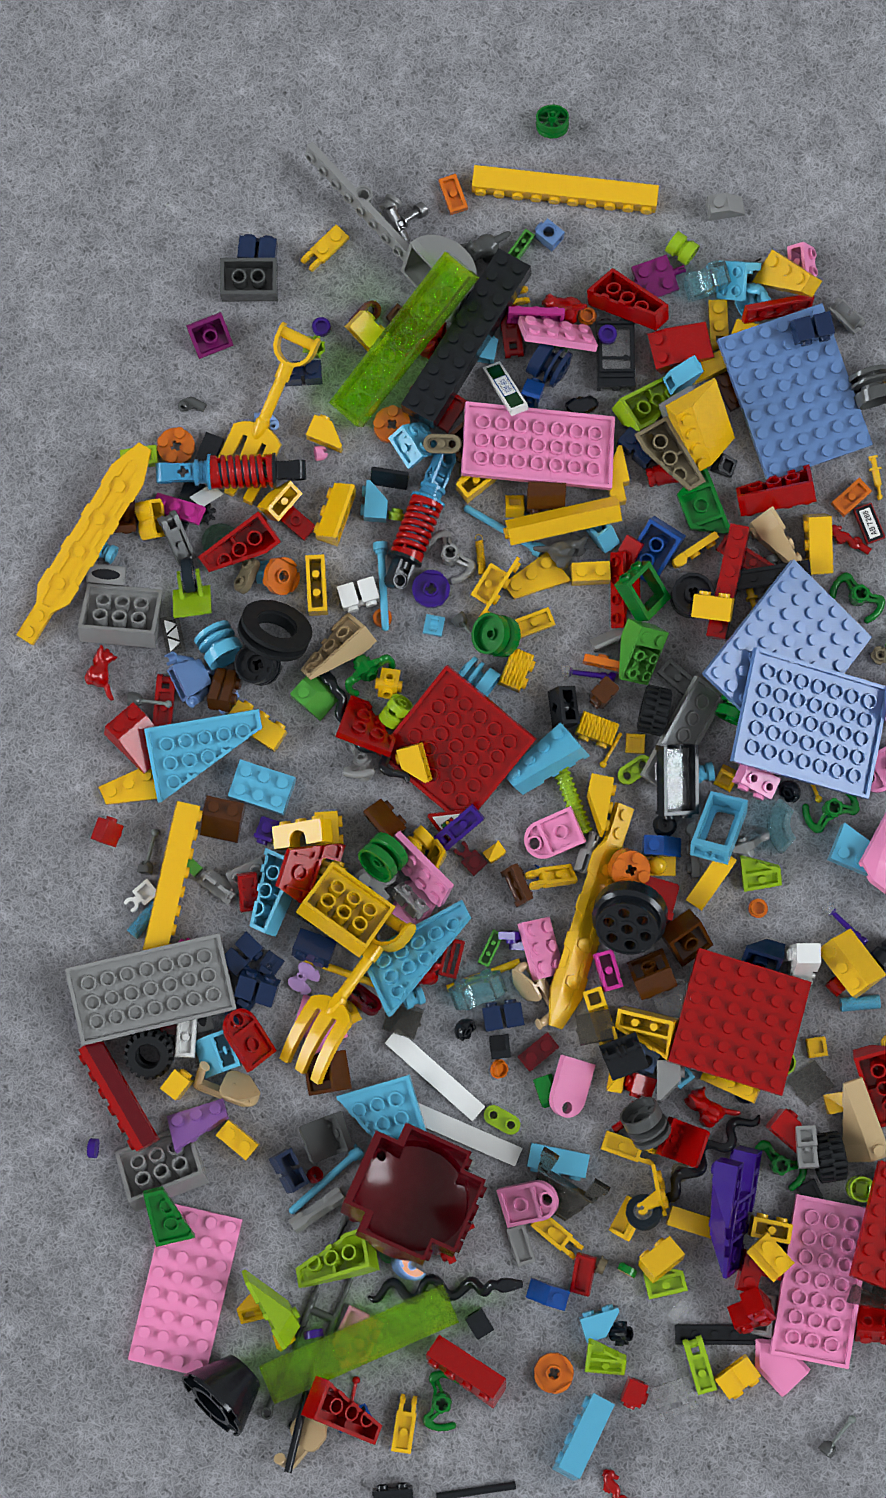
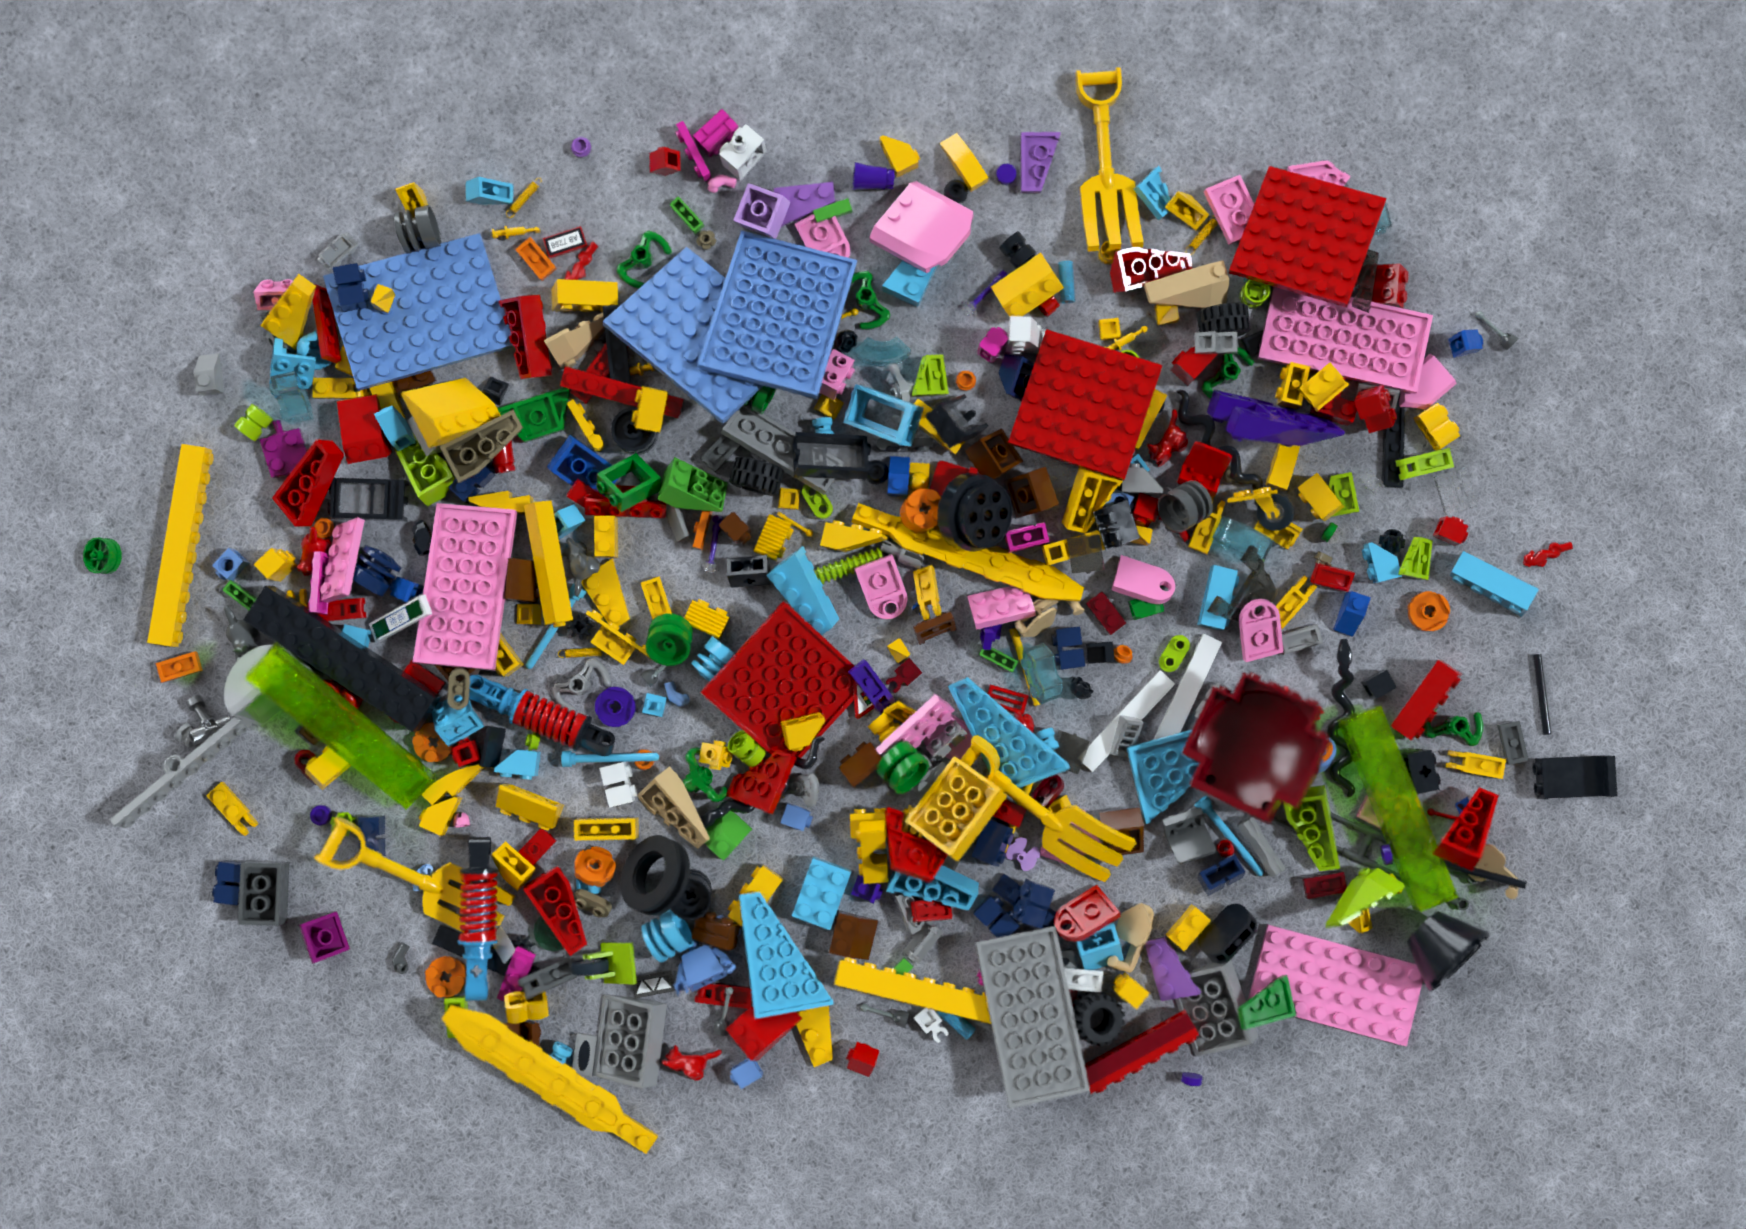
camera: 85 degrees left, 5 degrees up
(92, 723) = (745, 1073): none -> medium blue brick
(233, 1178) = (1227, 933): none -> black brick
(282, 1274) = (1324, 885): none -> dark red plate
(332, 761) = (796, 817): none -> medium blue brick
(343, 963) = (1011, 813): none -> red plate
(353, 442) = (451, 783): none -> yellow slope
(383, 453) = (465, 752): none -> red brick
(403, 1360) = (1415, 762): none -> black brick
(427, 1461) = (1513, 742): none -> dark grey plate
(434, 1070) = (1121, 728): none -> light grey slope
(442, 643) = (674, 696): none -> light blue arm
(509, 551) = (583, 631): none -> black gear
(551, 275) = (276, 564): none -> yellow brick
(607, 334) = (345, 506): dark purple tile -> none
(619, 1179) = (1239, 537): none -> clear light blue brick
(713, 893) = (951, 424): none -> black door
(794, 931) = (992, 344): none -> dark pink brick
(803, 358) = (382, 298): none -> yellow slope
(806, 1062) = (1126, 339): none -> yellow piece
(823, 1404) = (1466, 342): none -> blue slope

